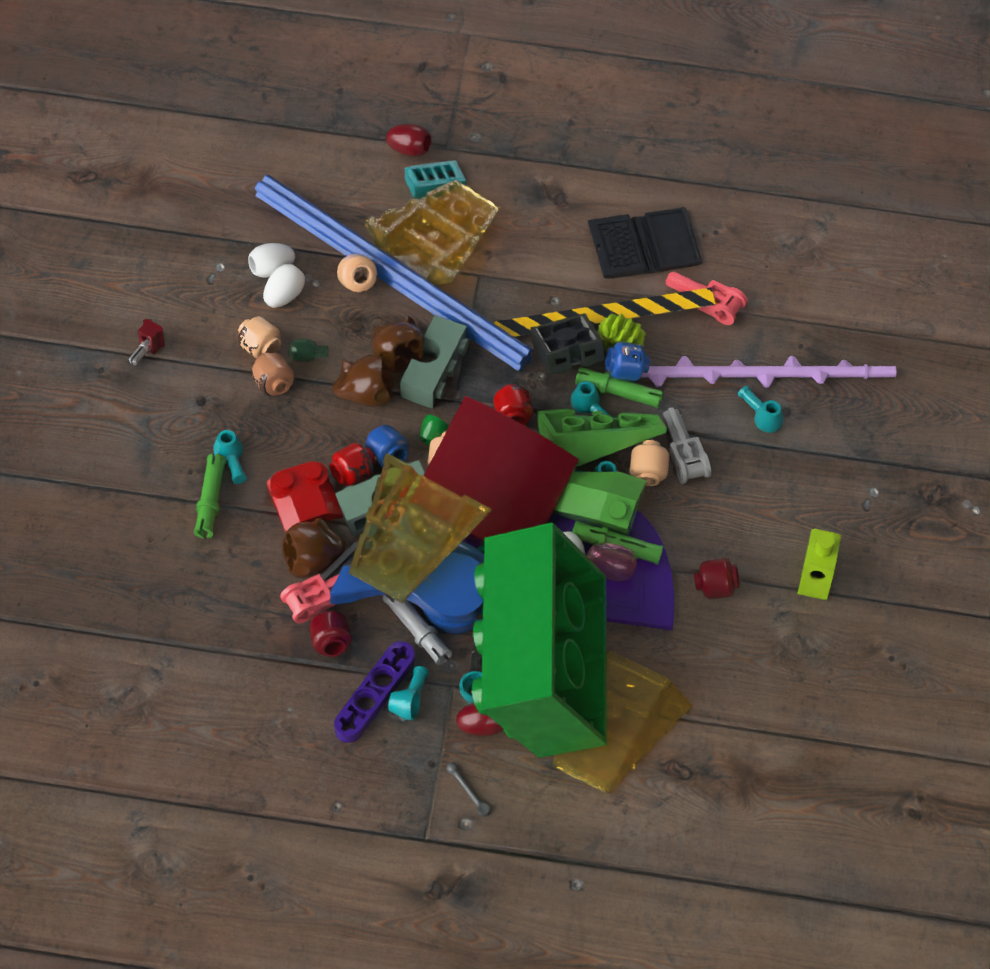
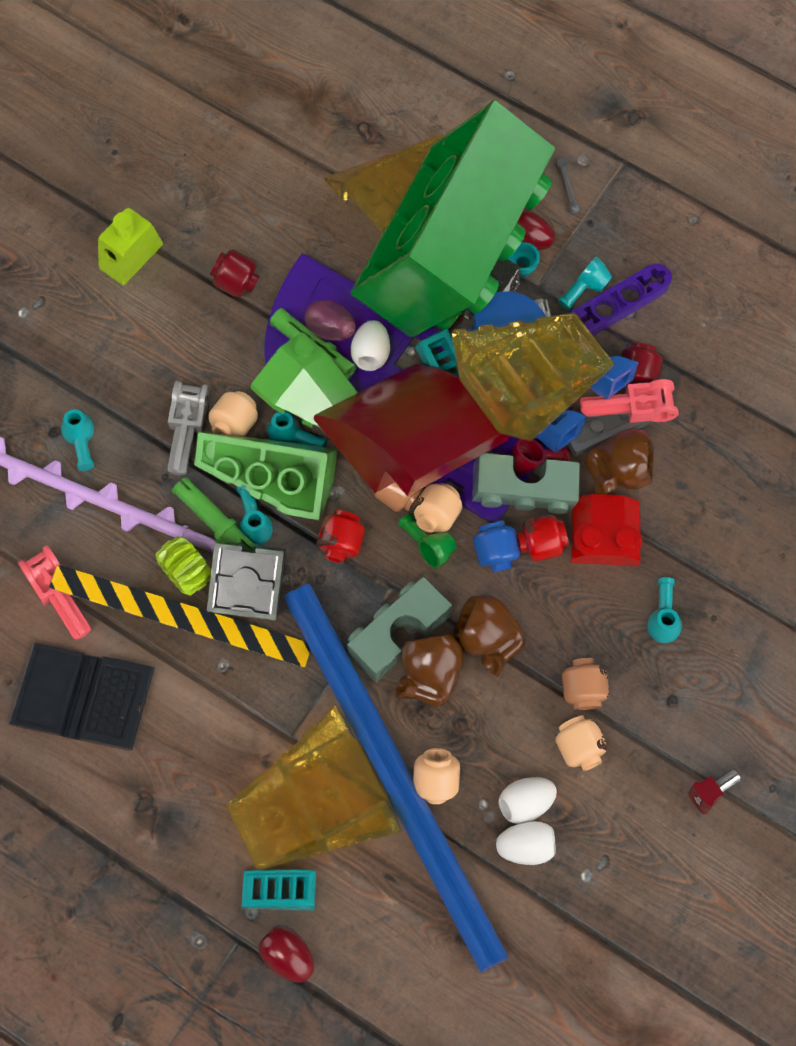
camera: 155 degrees left, 10 degrees up
(208, 505) = (712, 557): bright green pin -> none
(306, 350) = (533, 708): clear green cylinder -> none
(627, 361) = (196, 524): blue head -> none

